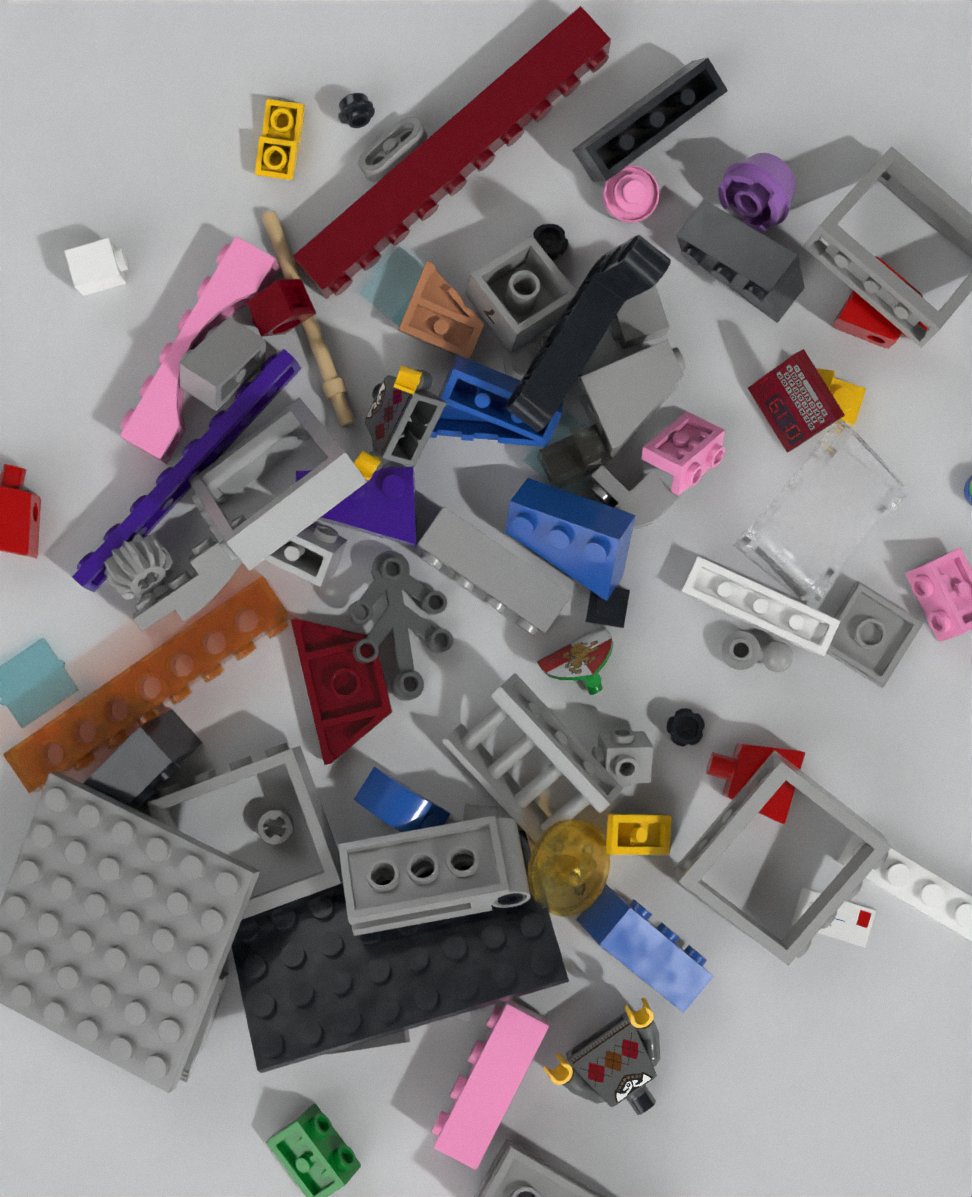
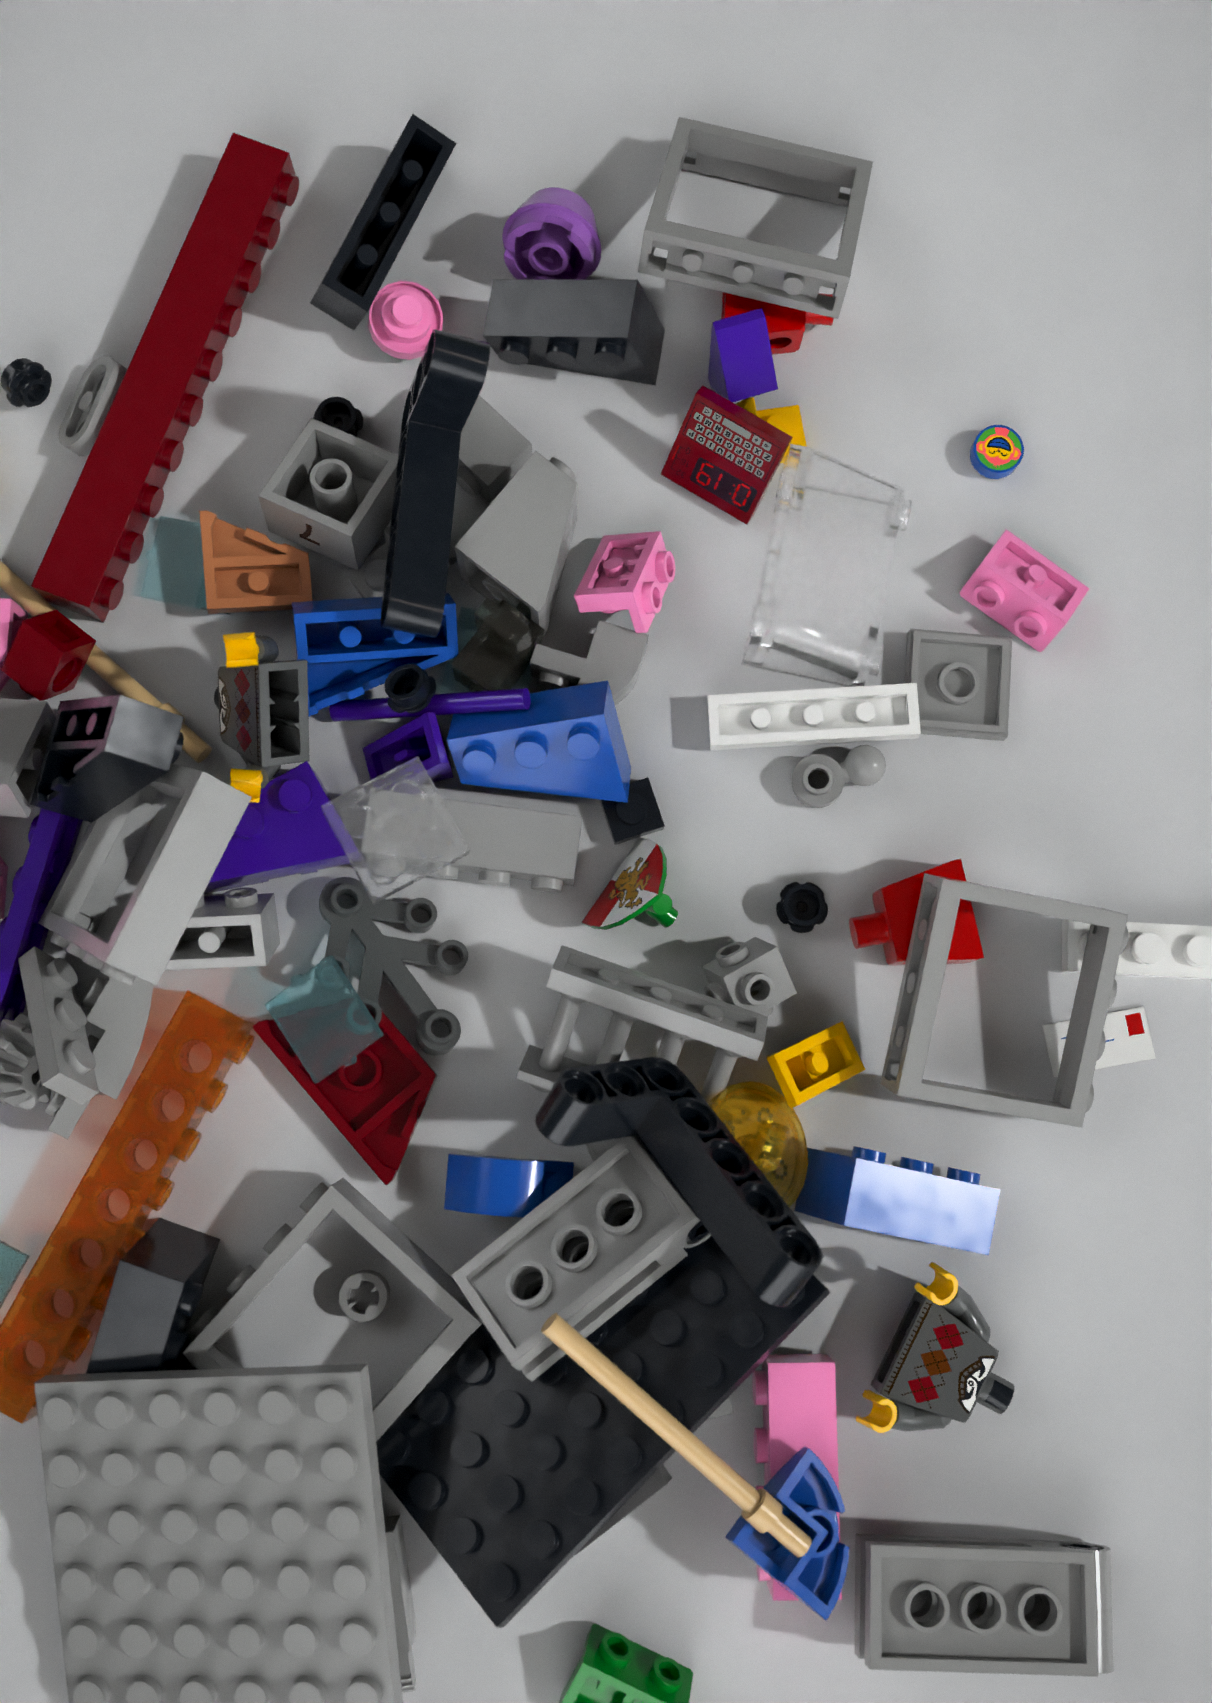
camera: 35 degrees left, 5 degrees down
(172, 557) = (58, 1026): none -> light grey plate
(286, 399) = (104, 754): none -> black wedge
(339, 640) = (324, 1019): none -> clear light blue piece
(446, 543) = (395, 830): none -> clear plate
(453, 1085) = (757, 1506): none -> tan bar
(469, 1114) = (811, 1503): none -> blue brick
(479, 495) = (416, 738): none -> dark purple slope
(502, 446) = (409, 689): none -> black plate
(513, 470) = (440, 704): none -> dark purple bar
(530, 853) = (698, 1156): none -> black beam
(841, 342) = (741, 357): none -> dark purple slope

